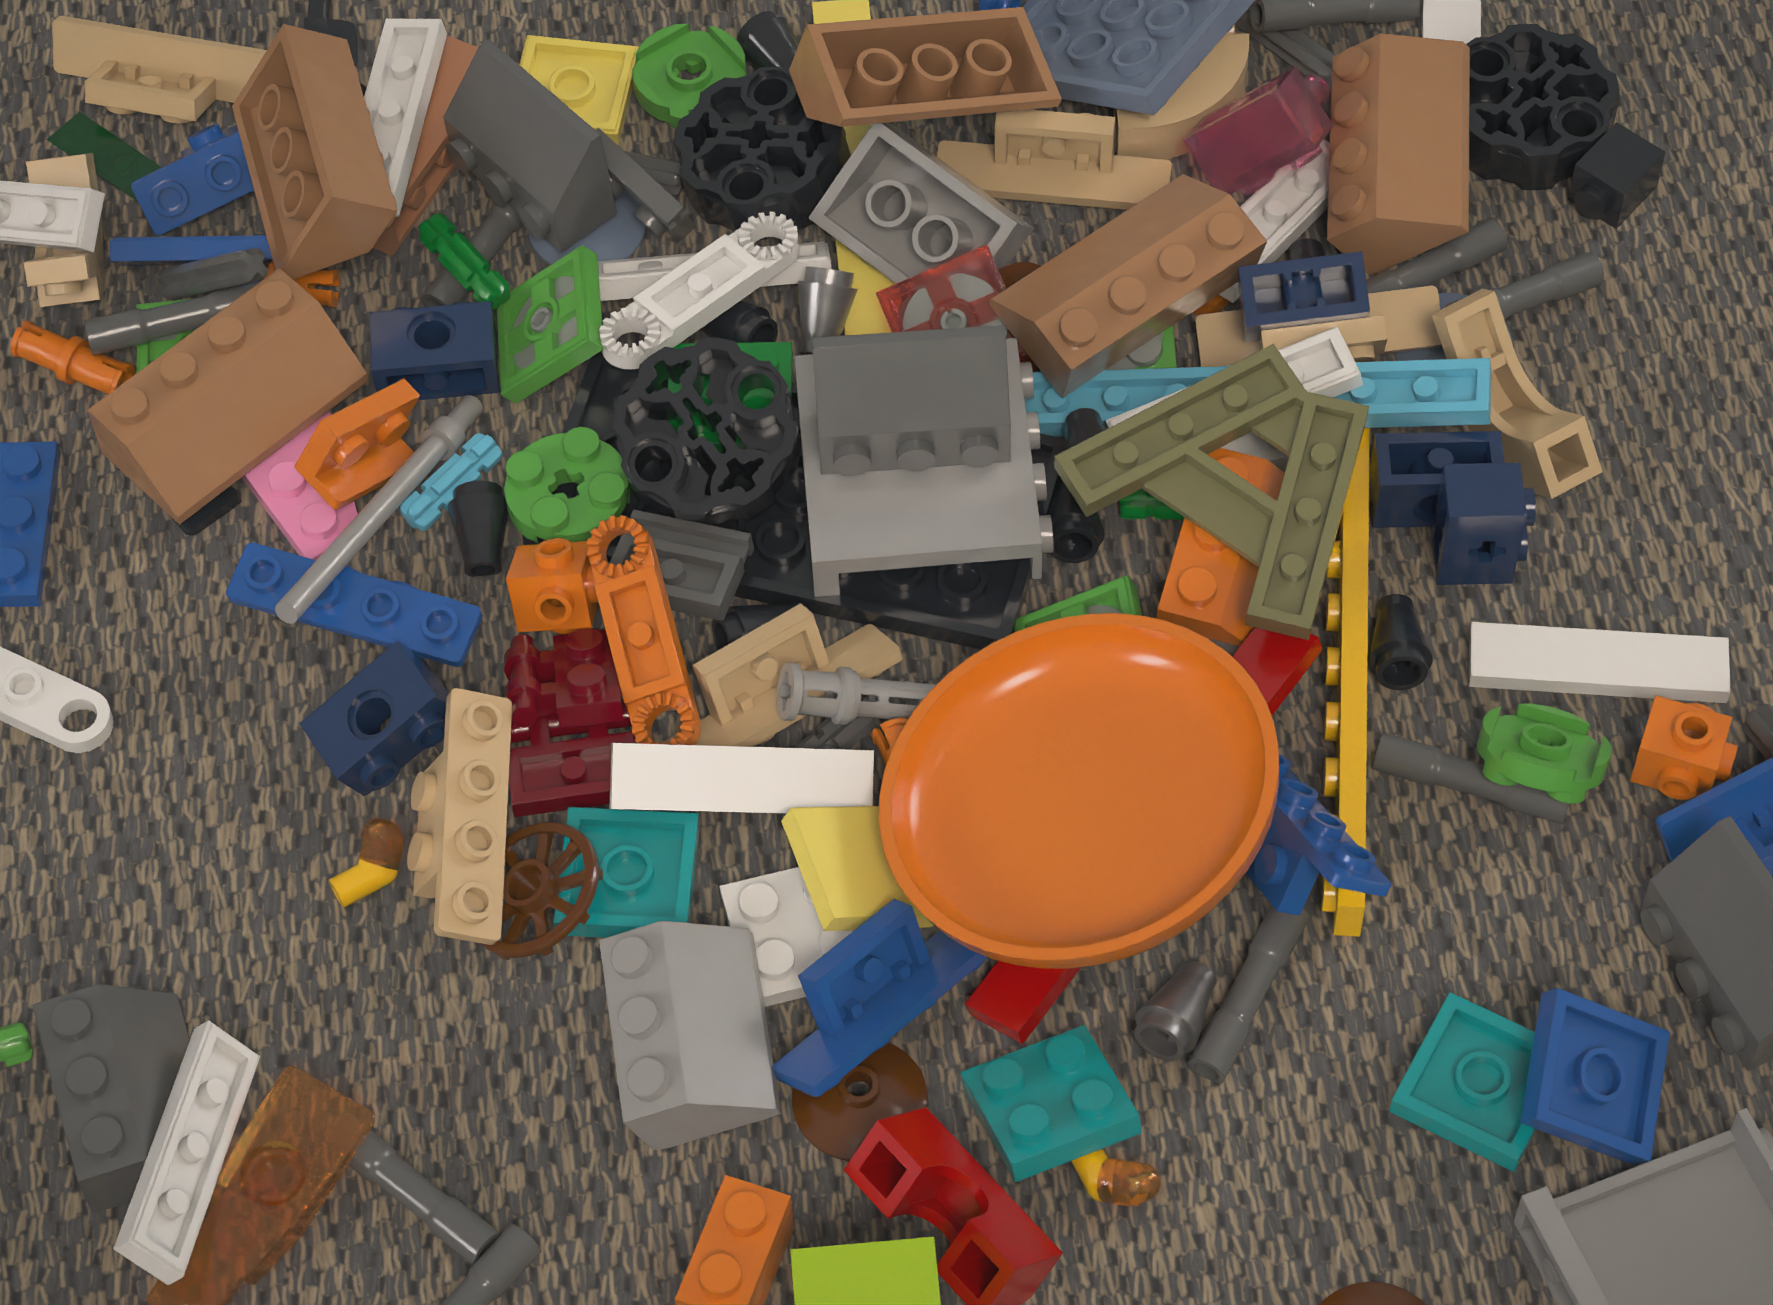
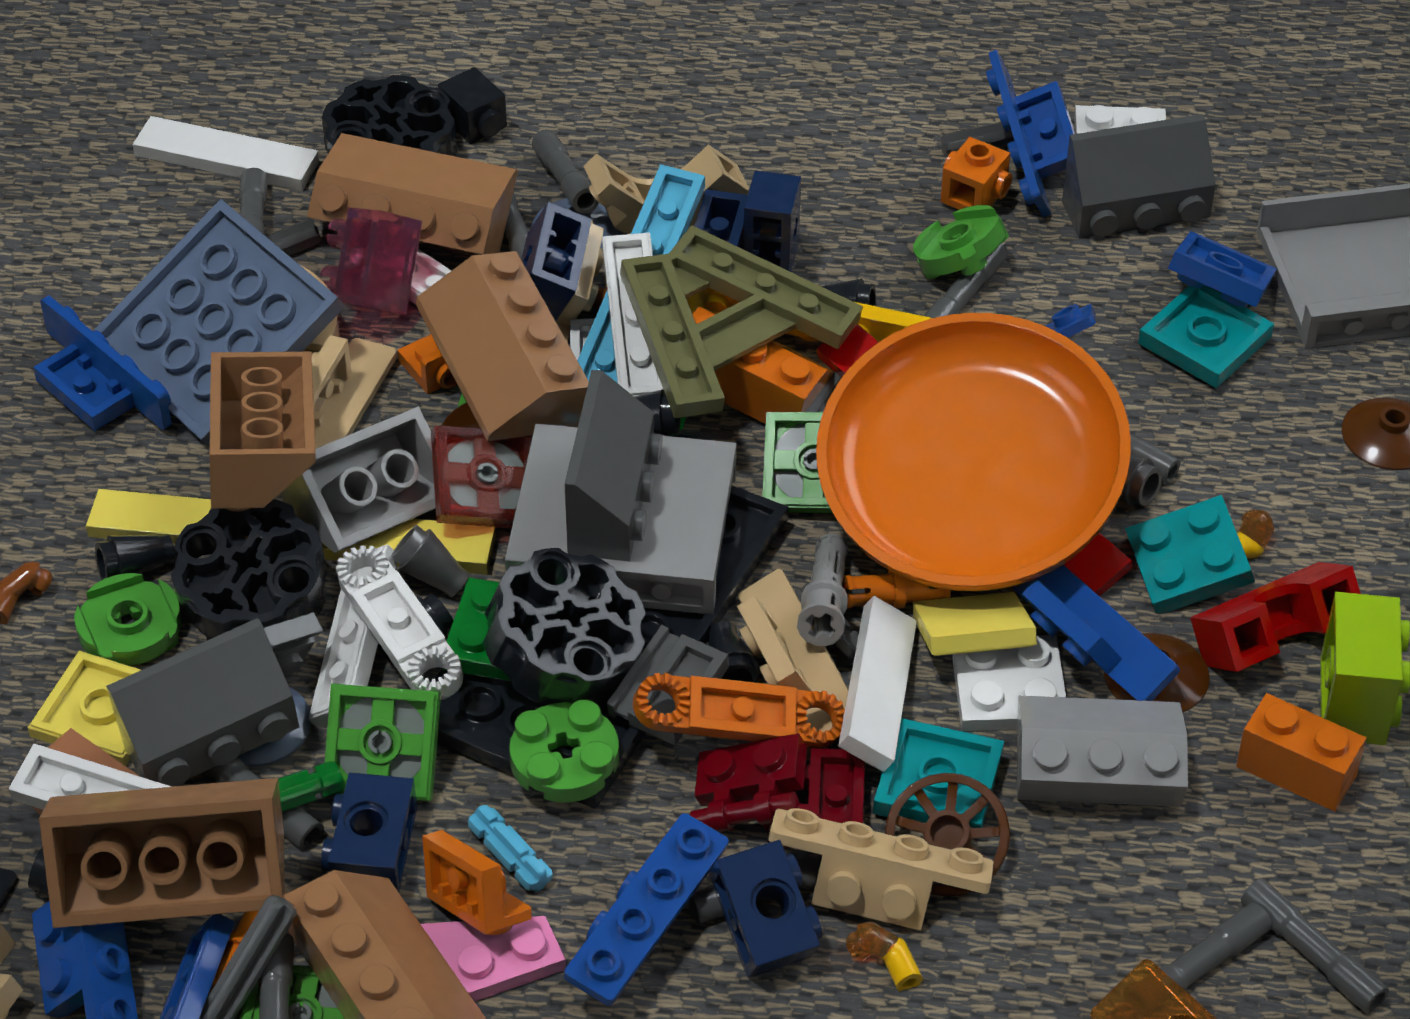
camera: 80 degrees left, 10 degrees down
(438, 443) = (562, 877): light grey bar -> none
(479, 523) = (569, 830): black cone -> none
(552, 587) = (657, 775): orange brick -> none
(1599, 662) = (881, 213): white tile -> none

